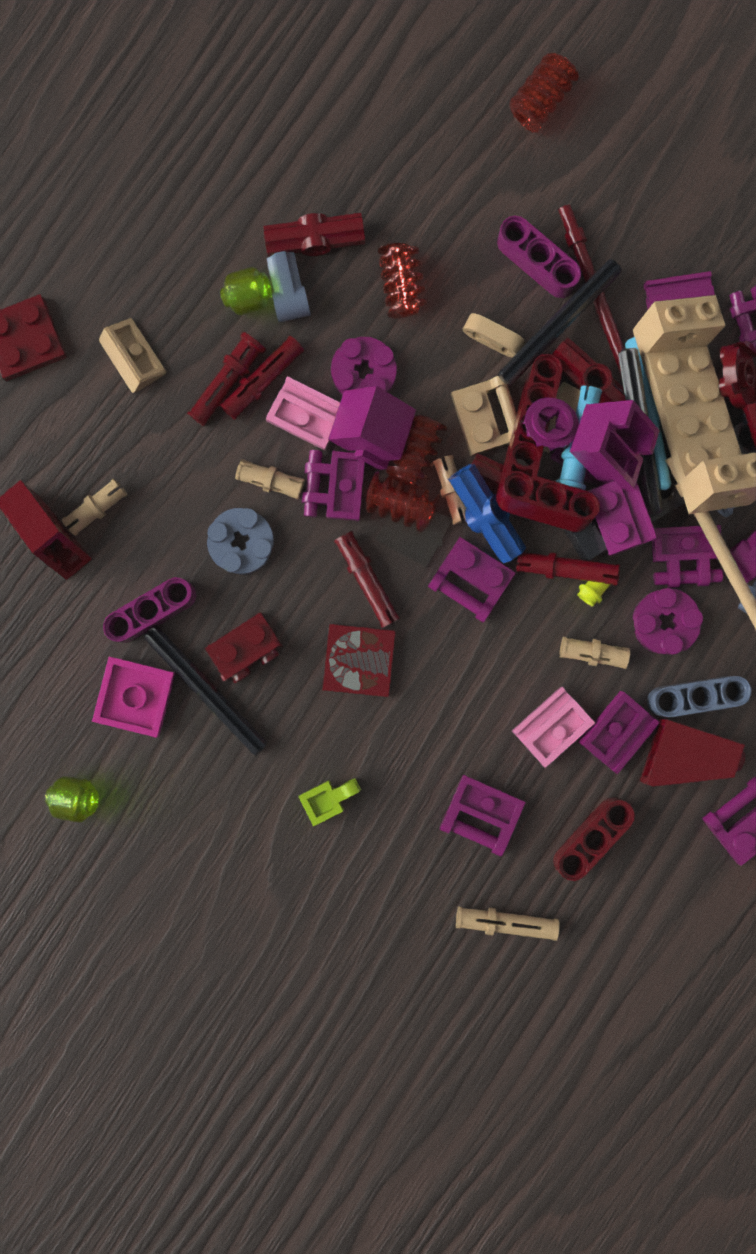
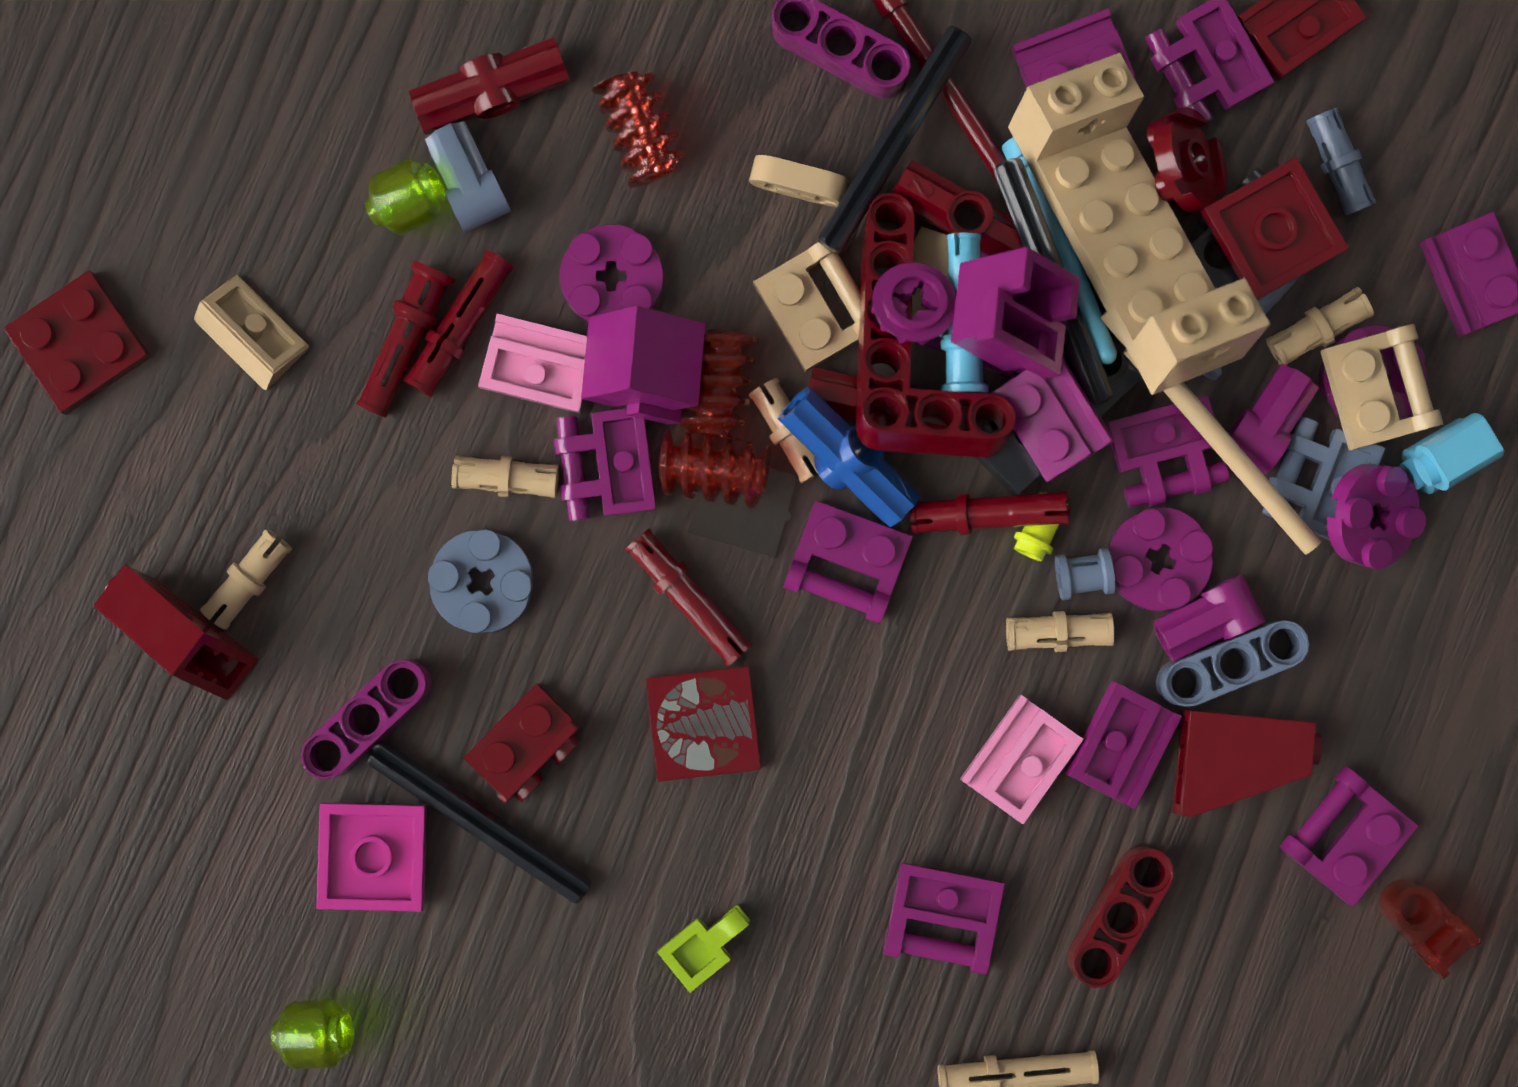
camera: 15 degrees left, 0 degrees up
(618, 620) = (1085, 574): none -> sand blue bush
(697, 663) = (1220, 613): none -> magenta piece

